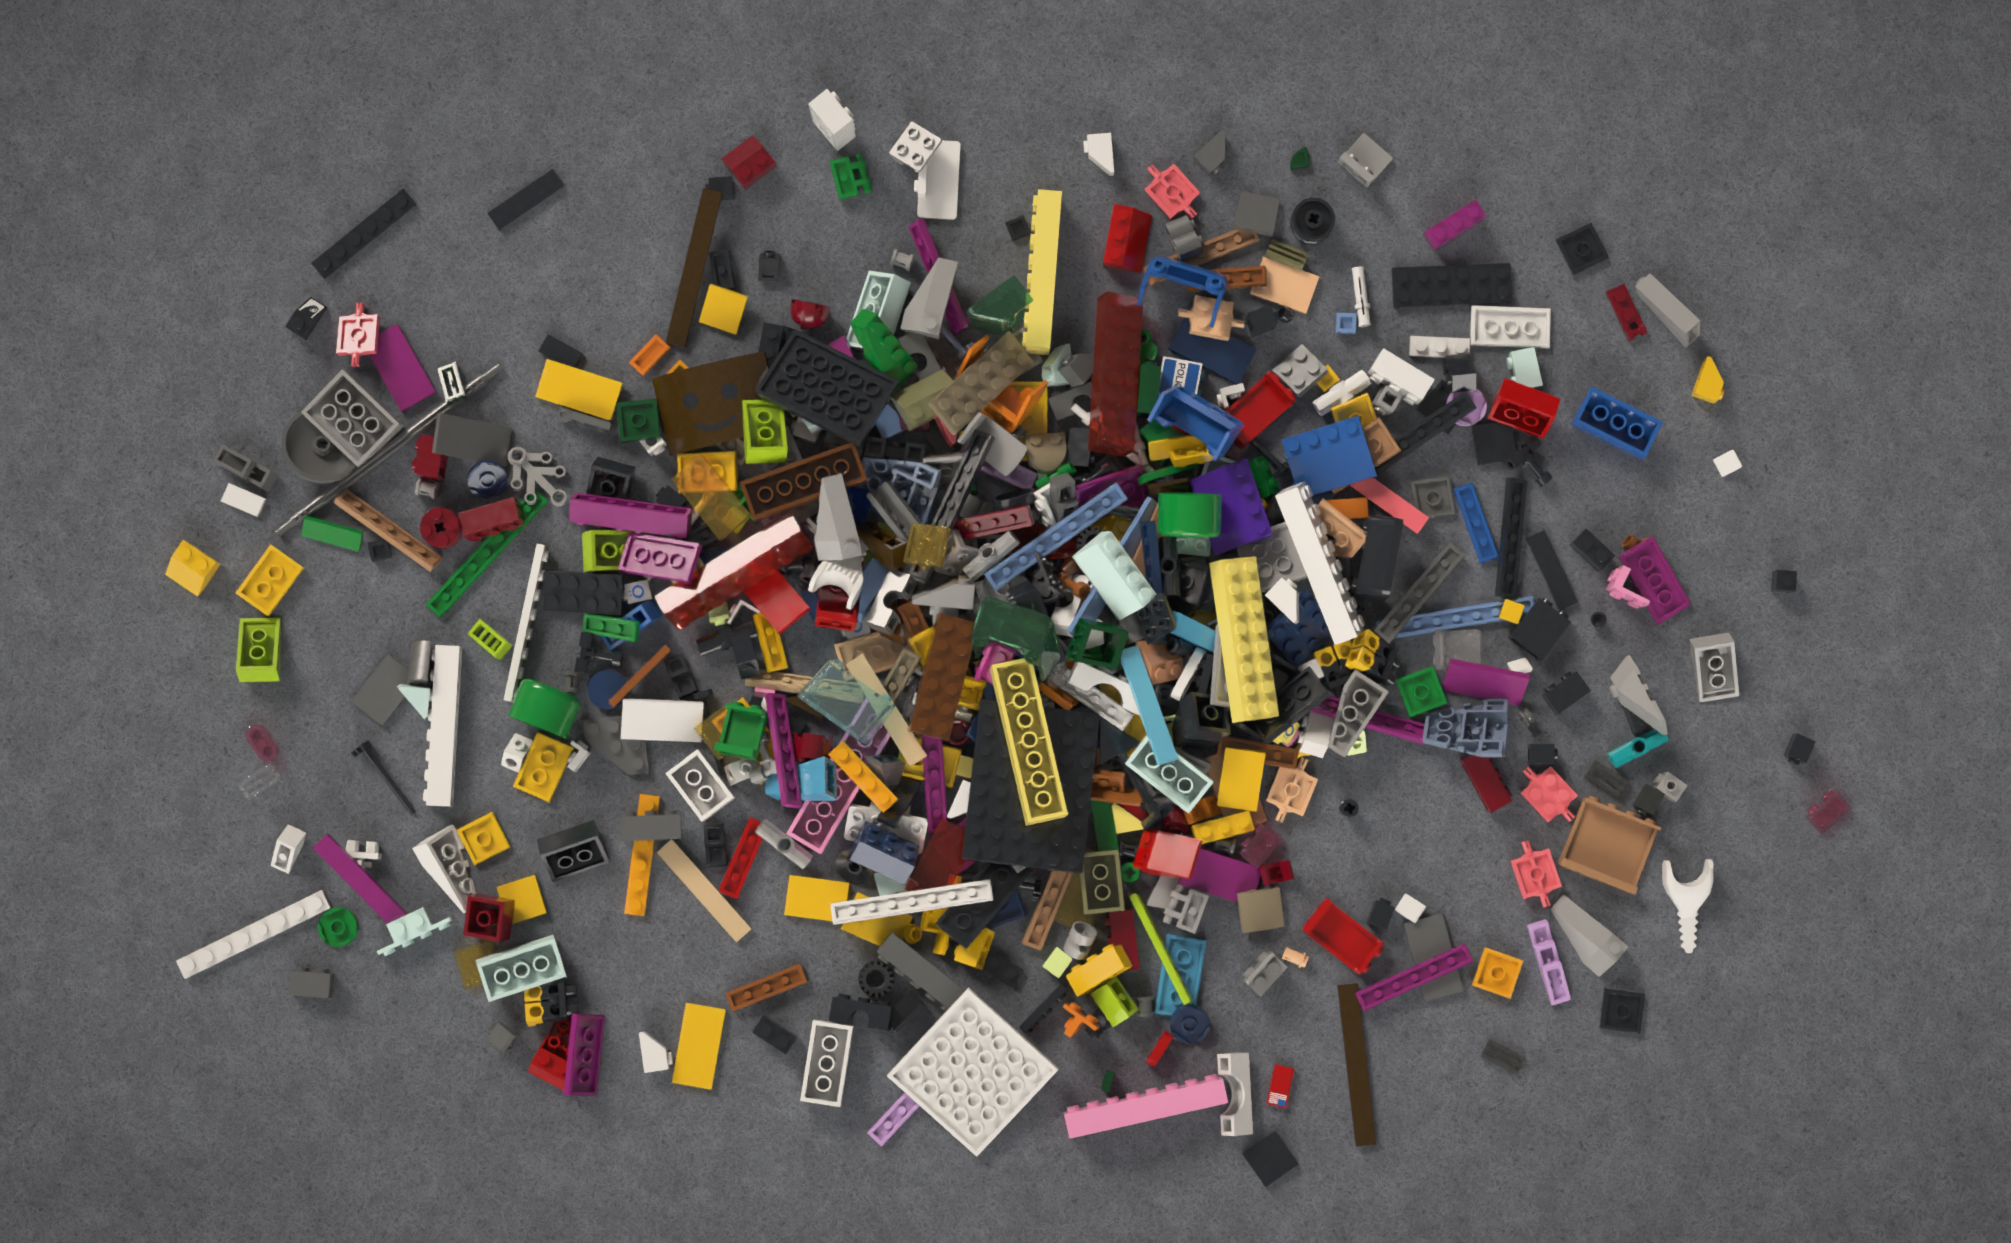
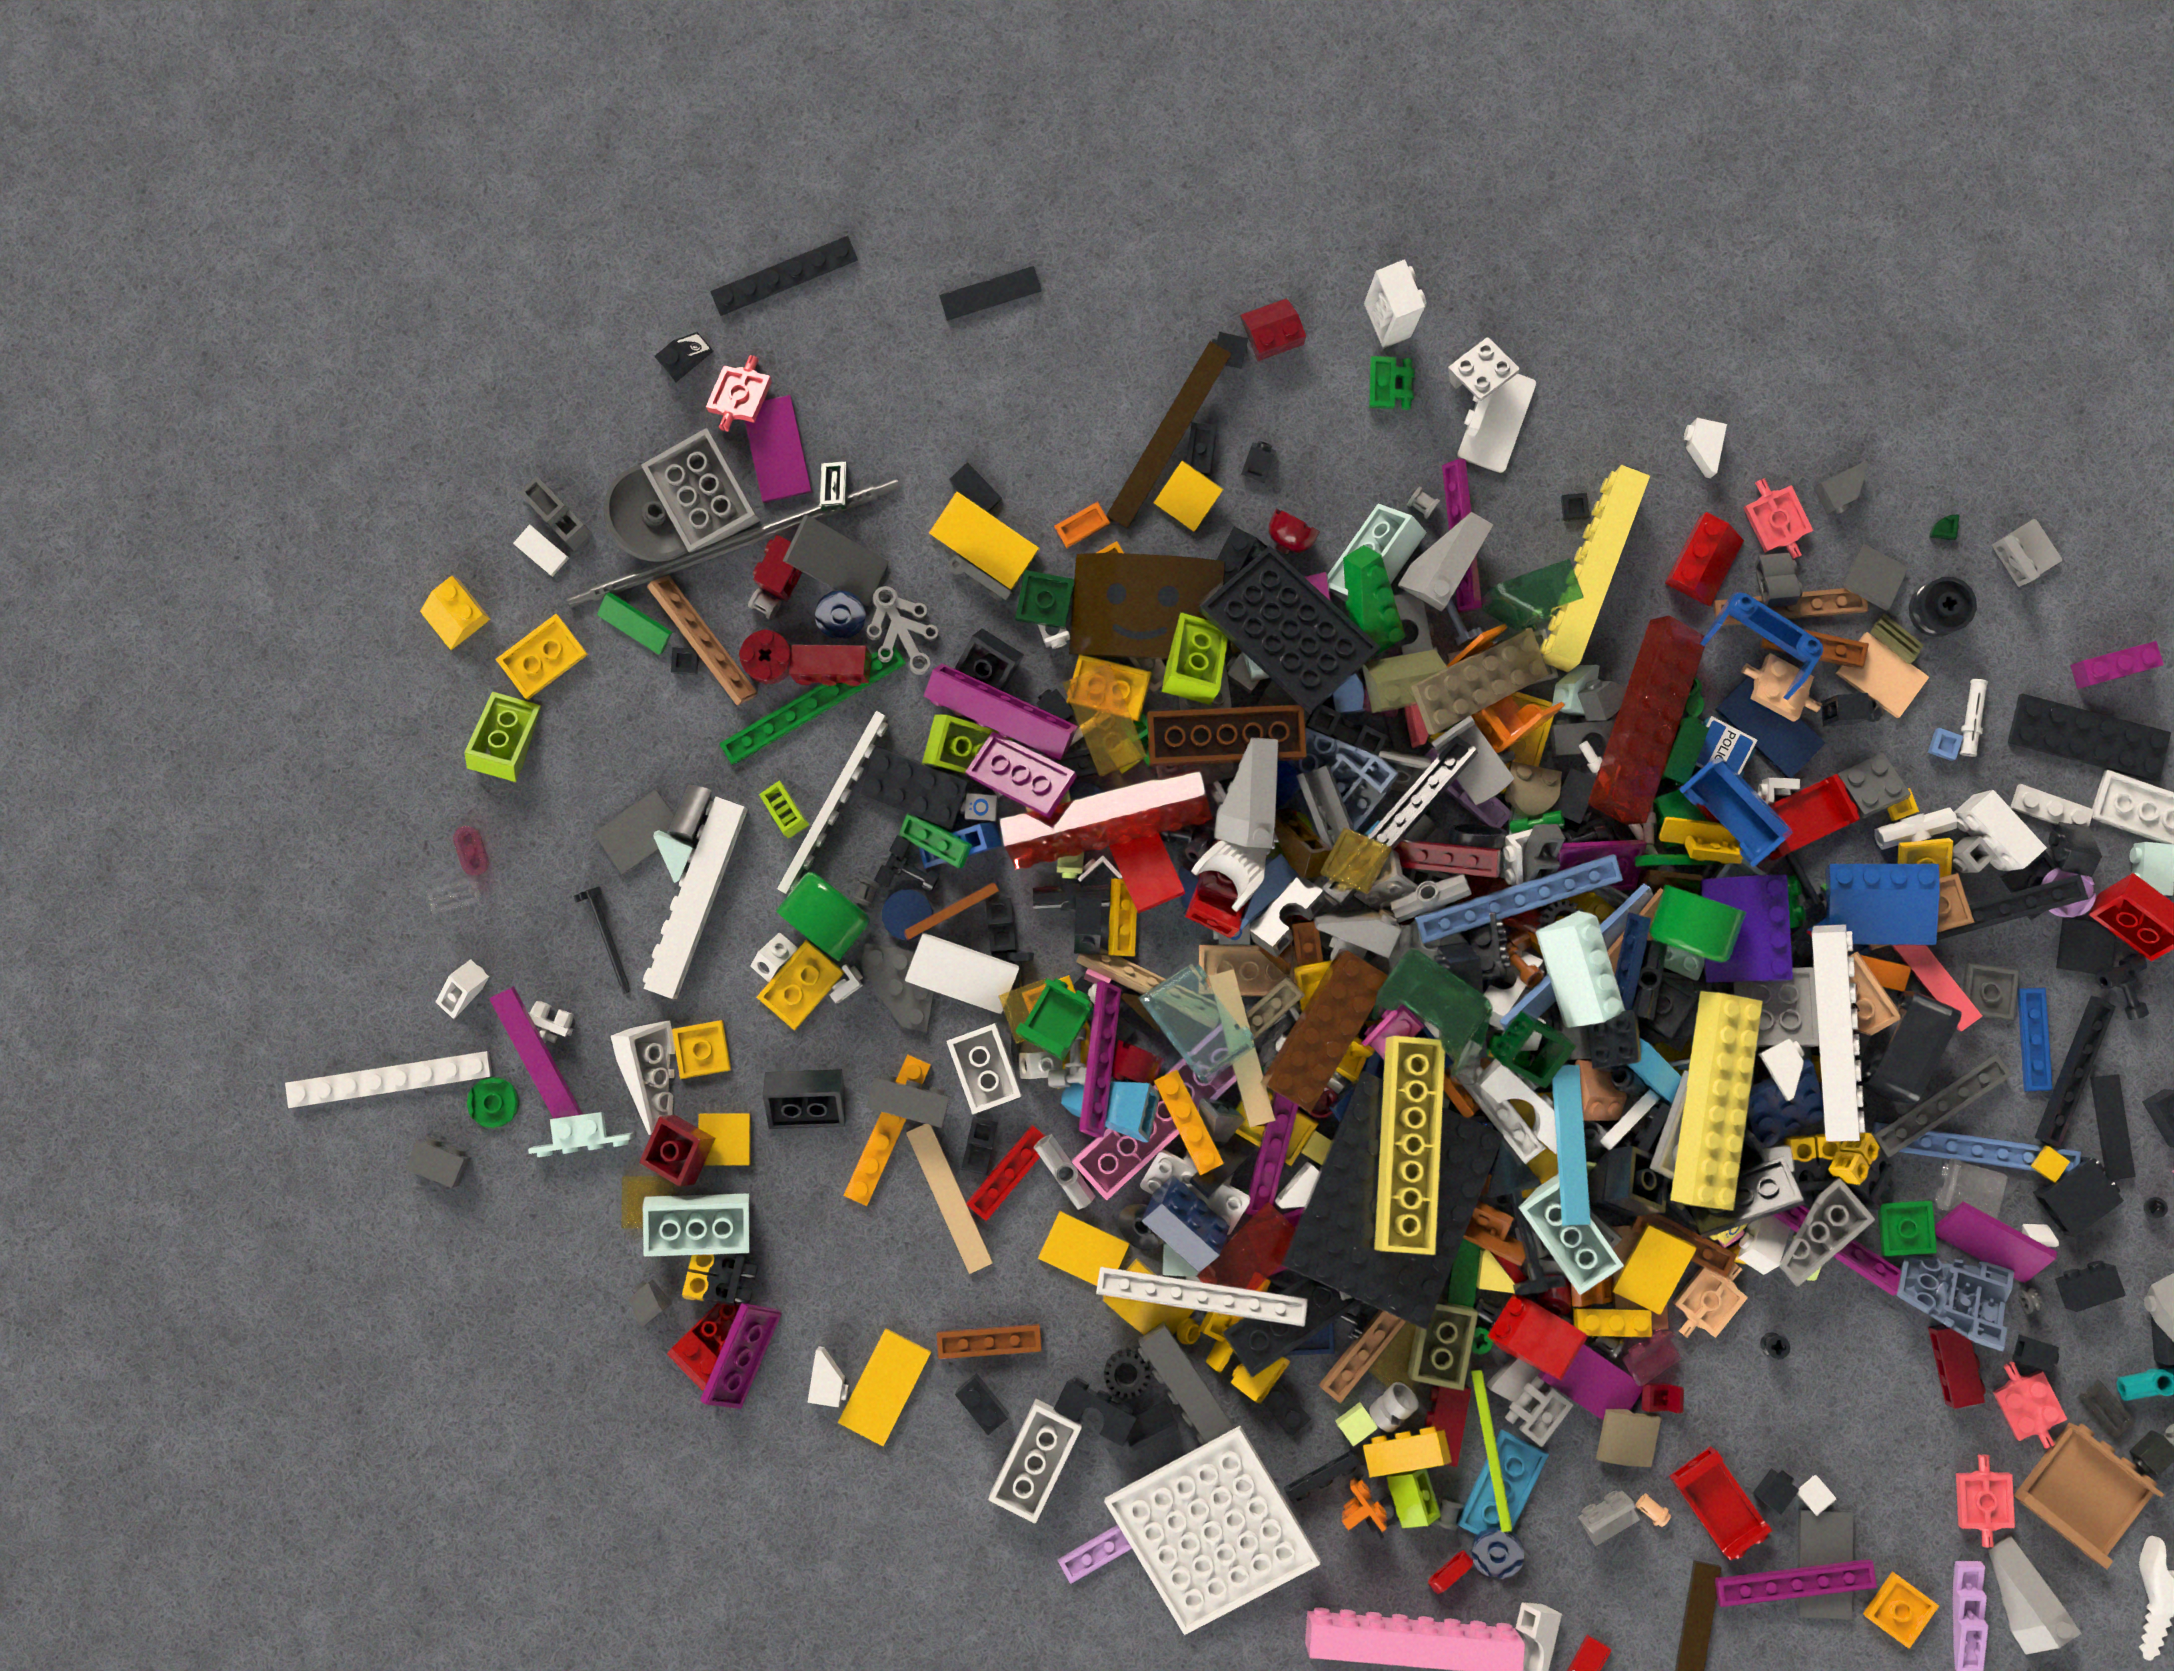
camera: 25 degrees right, 0 degrees up
(1108, 1077) = (1374, 1591): dark green tile -> none

